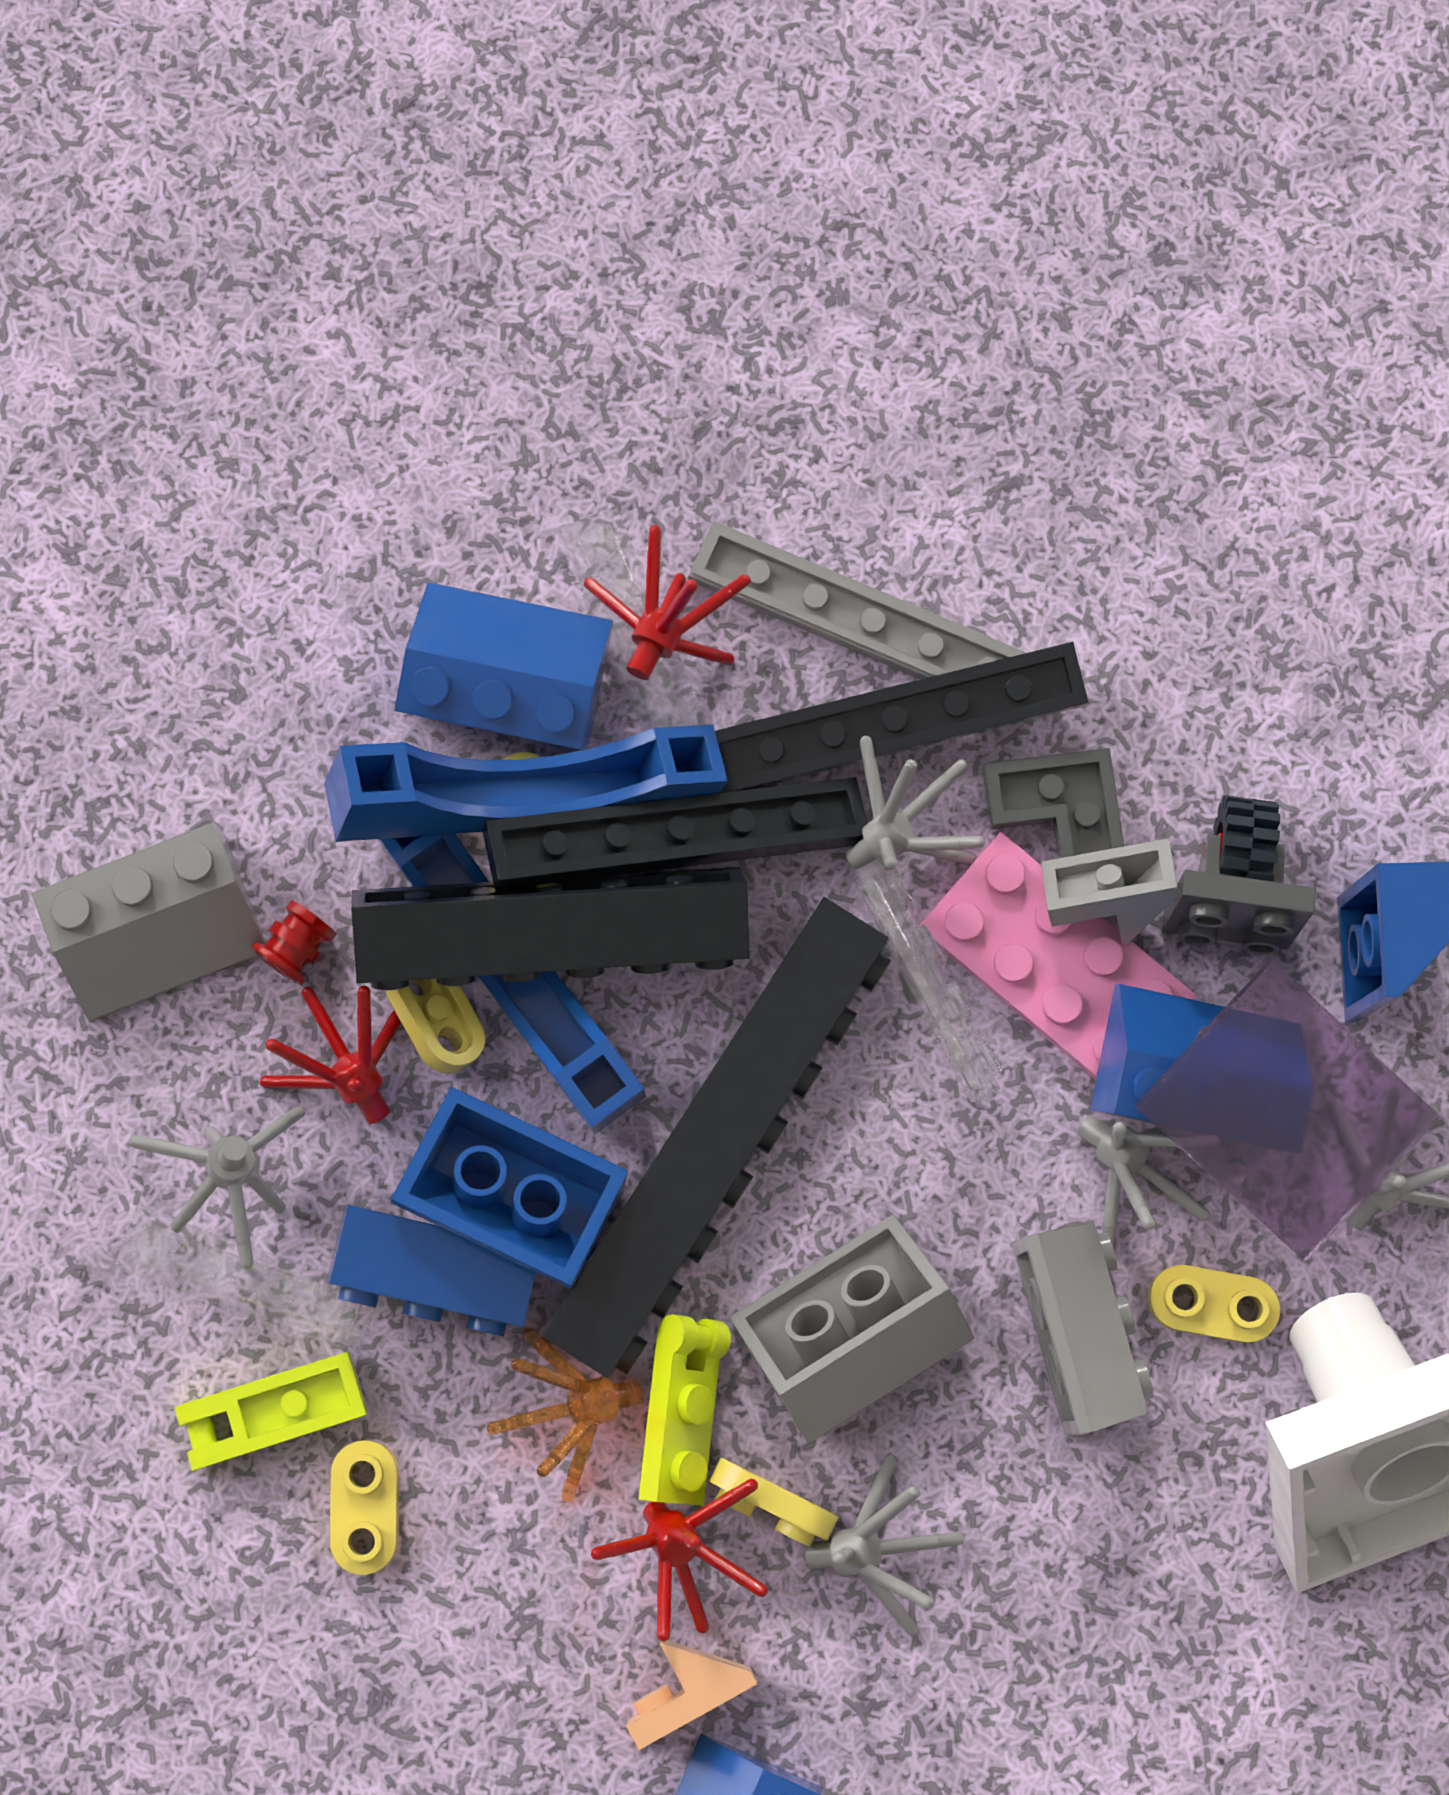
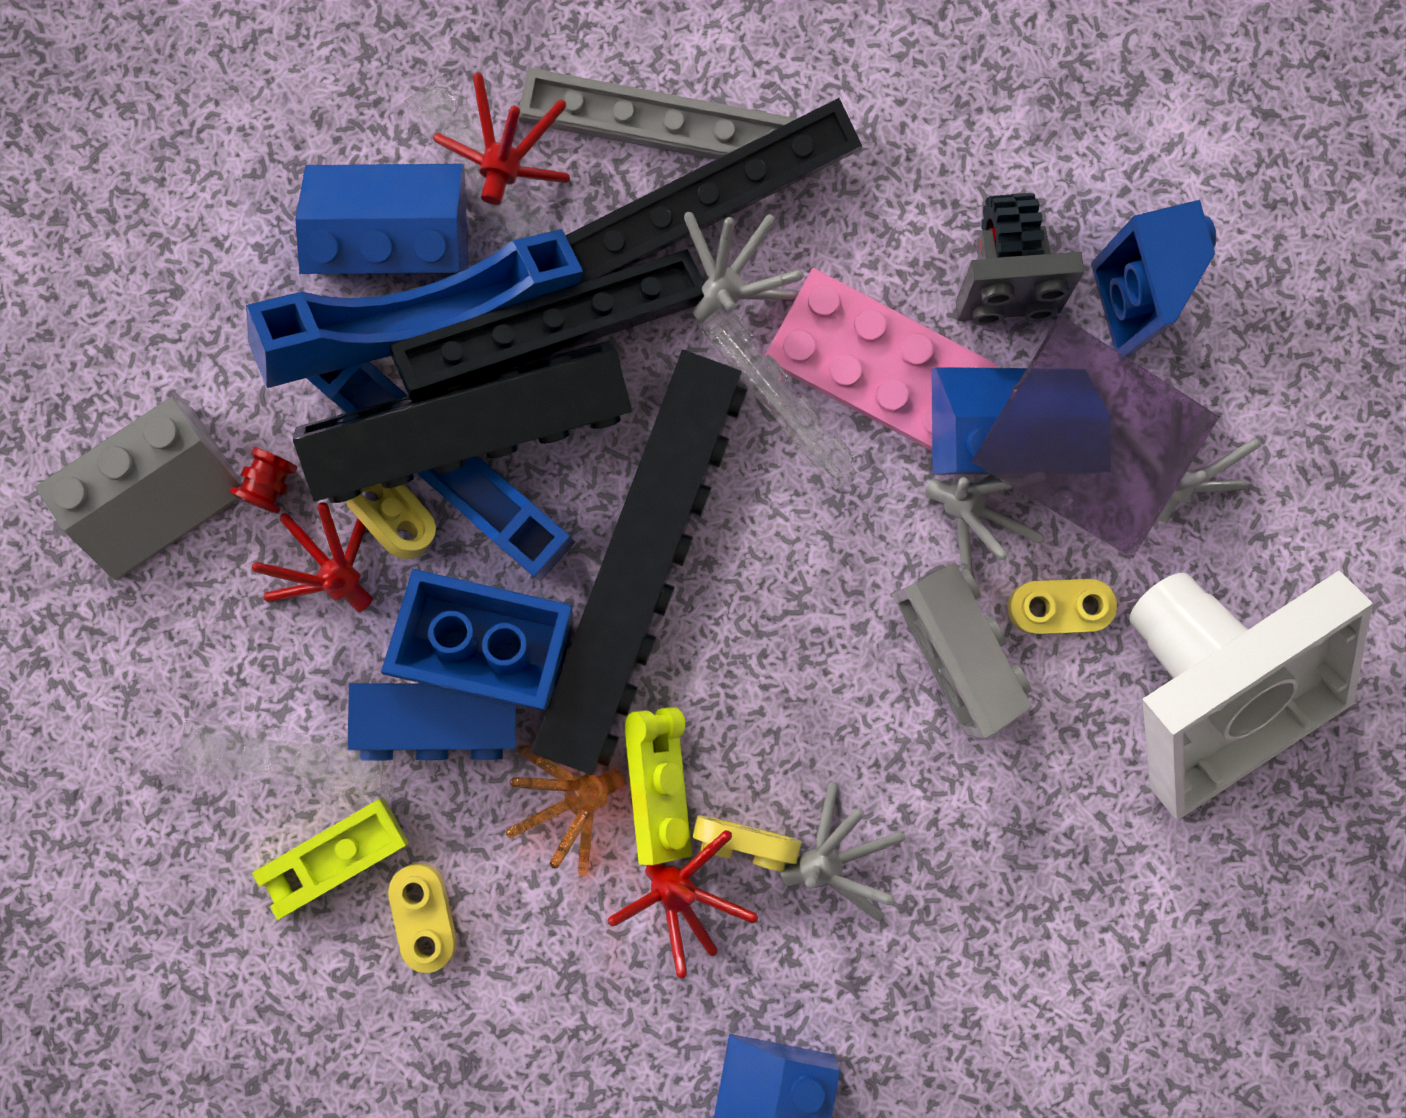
camera: 10 degrees left, 5 degrees up
(228, 1167) = (246, 673): light grey plant -> none
(705, 1683) = (724, 999): light nougat slope -> none
(852, 1328) = (780, 690): light grey slope -> none
(1064, 789) = (860, 224): dark grey plate -> none
(1120, 881) = (921, 284): light grey slope -> none

